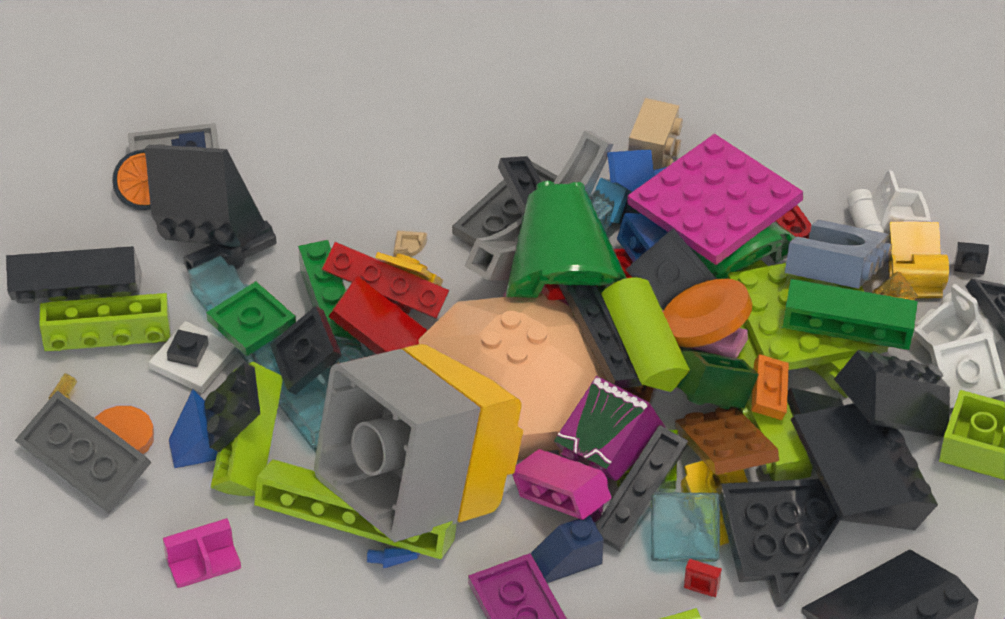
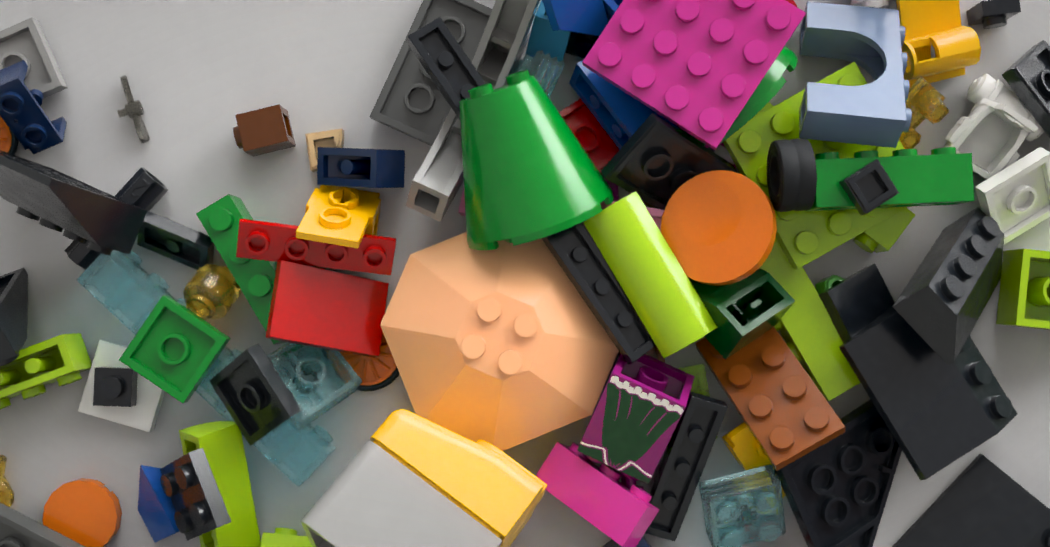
camera: 15 degrees left, 40 degrees up
(268, 193) = (134, 110): none -> clear smoke piece
(271, 272) = (175, 241): none -> black plate
(294, 298) = (211, 292): none -> clear yellow head
(366, 220) = (264, 130): none -> reddish brown brick
(440, 250) = (361, 167): none -> dark blue slope
(771, 286) = (791, 175): none -> black tyre
(771, 387) = (809, 314): orange plate -> none
(829, 299) = (869, 187): none -> black tile

